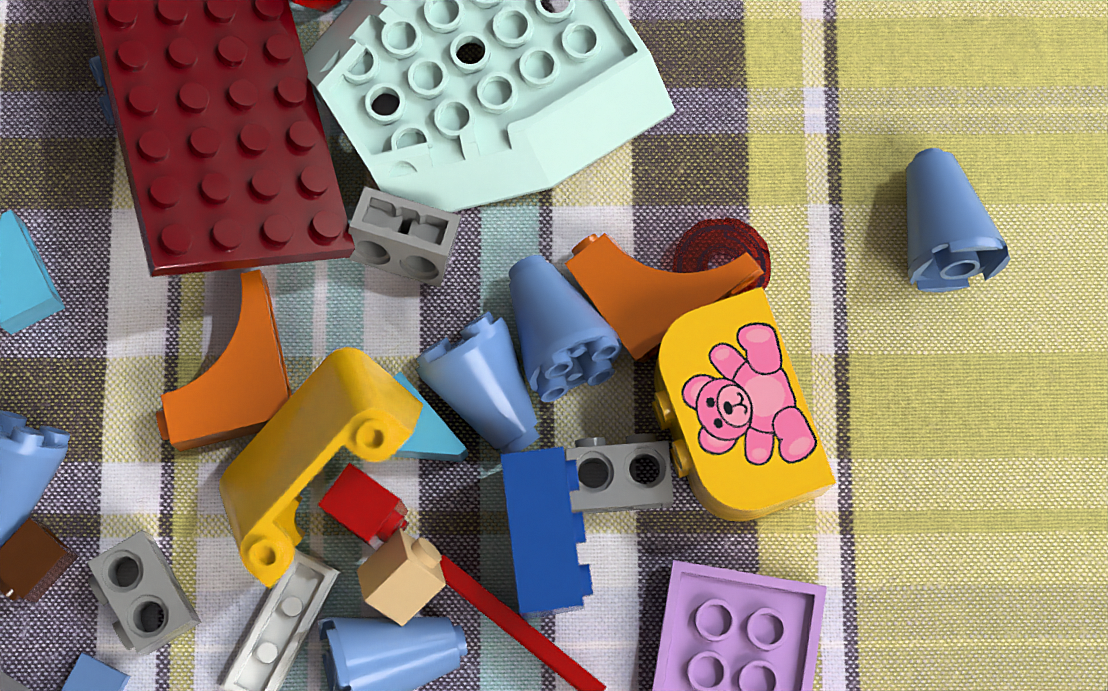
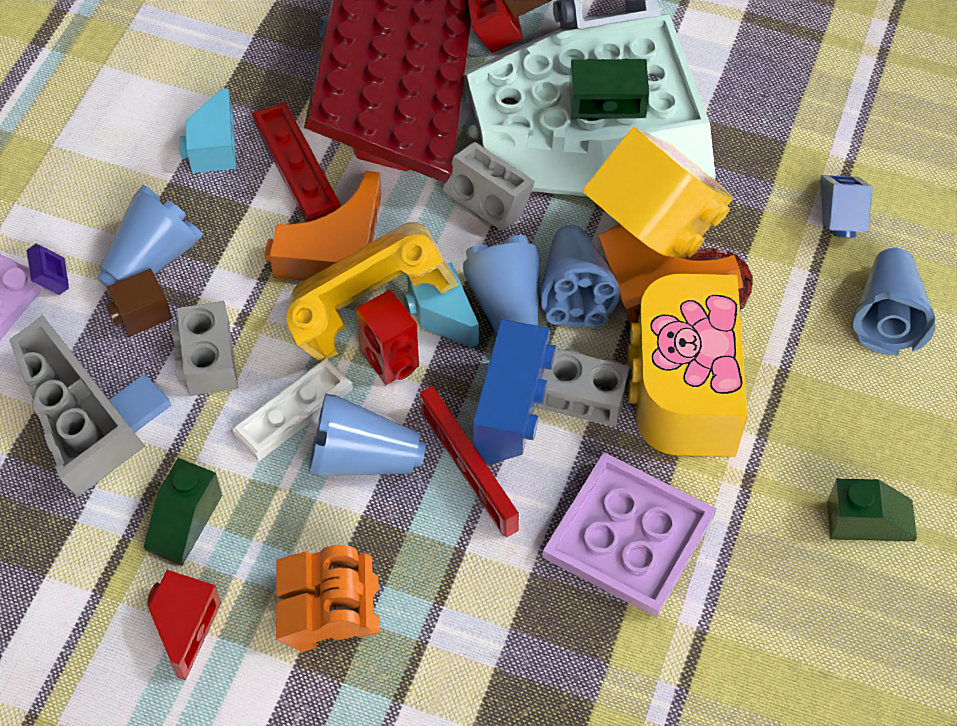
camera: 20 degrees right, 20 degrees down
(123, 261) = (295, 162): none -> red tile
(401, 576) = (396, 382): tan brick -> none
(510, 54) = (609, 88): none -> dark green brick
(637, 208) = (658, 194): none -> yellow brick
(846, 96) = (845, 204): none -> slope
(1000, 522) = (870, 512): none -> dark green slope

